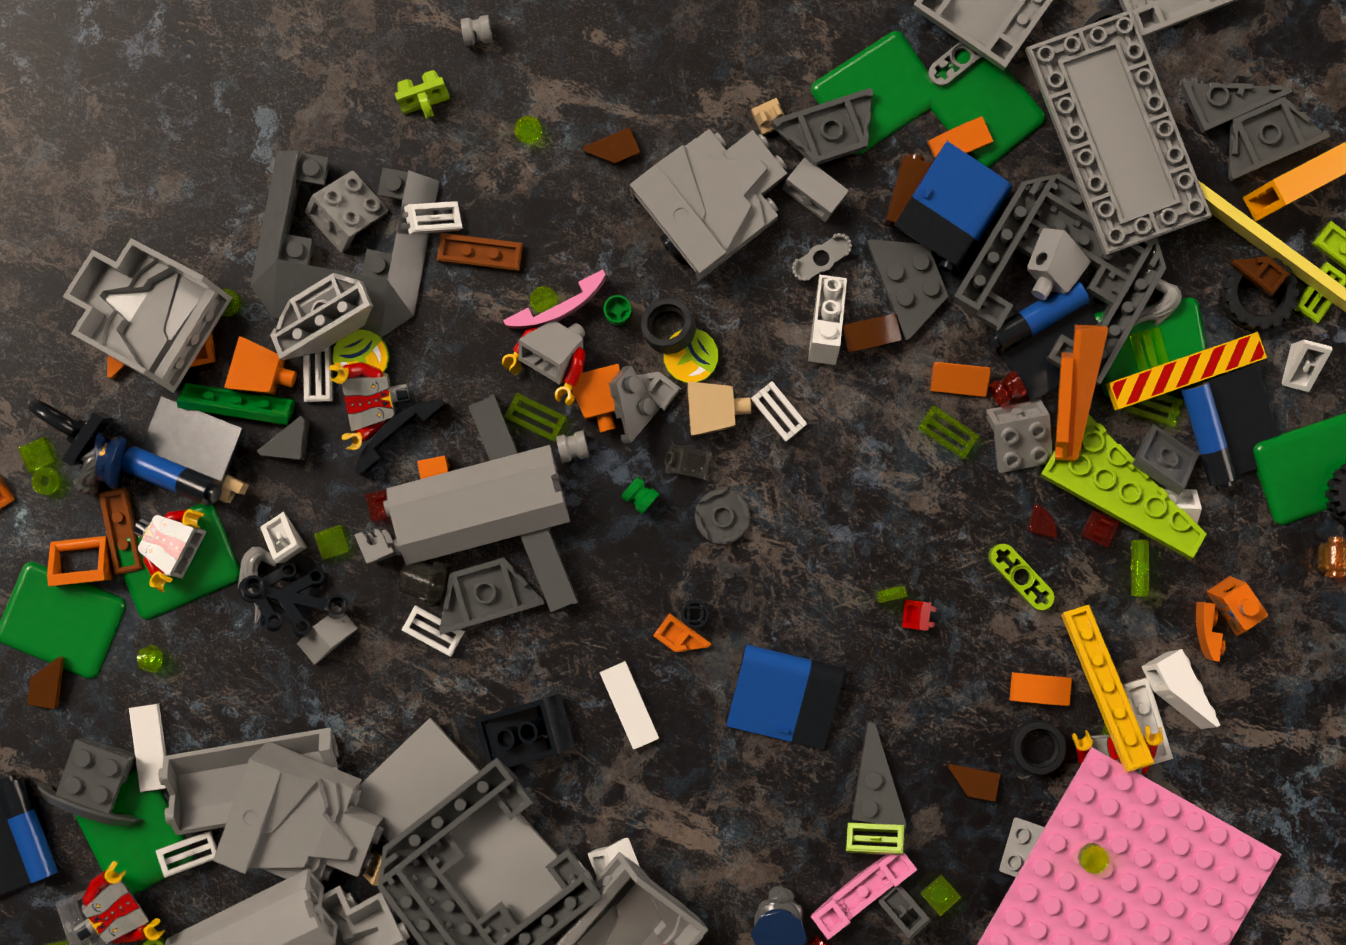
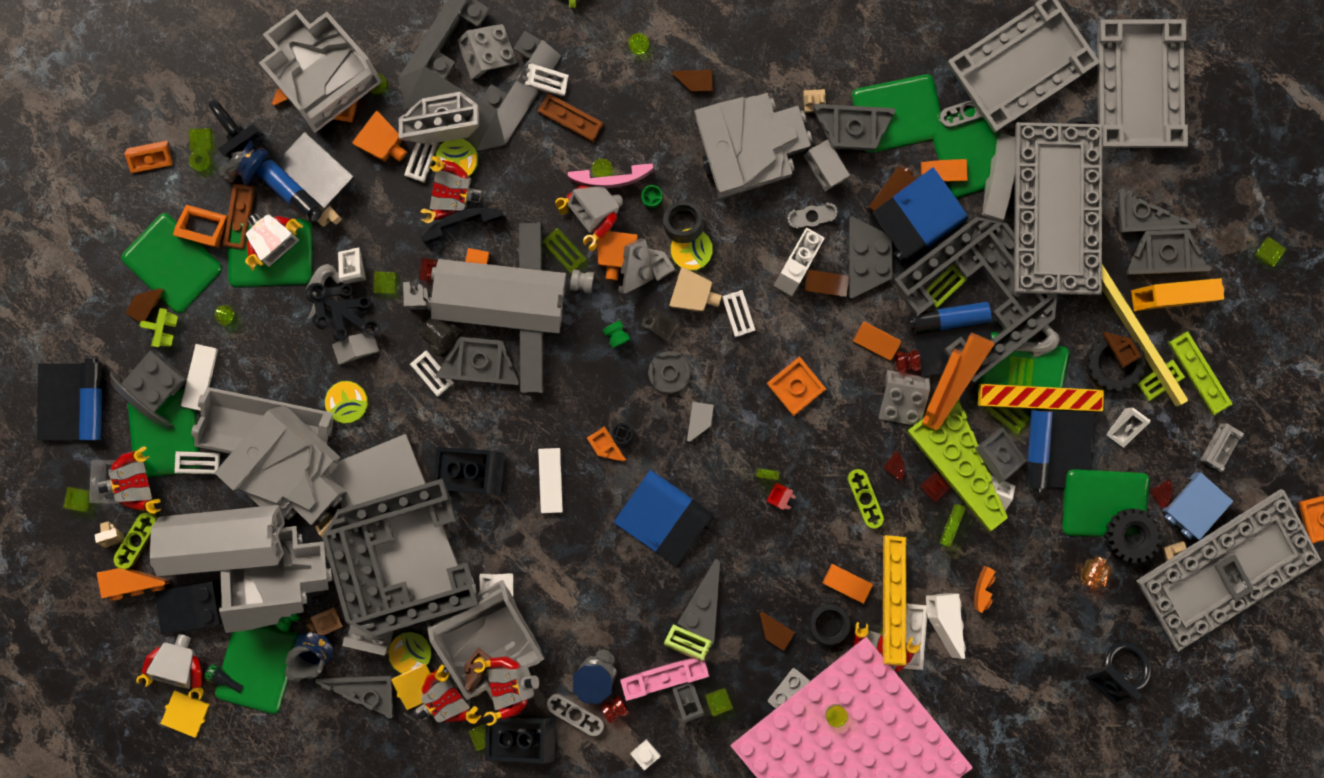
camera: 20 degrees right, 0 degrees up
(81, 719) = (163, 318): none -> lime hips
(236, 403) = (355, 157): green tile -> none
(290, 442) = (382, 200): dark grey slope -> none
(342, 706) = (346, 401): none -> tile
(782, 559) = (700, 419): none -> light grey tile
(883, 472) = (796, 386): none -> orange tile
(928, 419) = (863, 390): clear neon green tile -> none
(1024, 259) = (956, 286): none -> lime tile
(1034, 123) = (1001, 178): none -> light grey slope
(1056, 263) = (977, 284): light grey torso -> none
(1238, 606) = (1011, 578): orange torso -> none

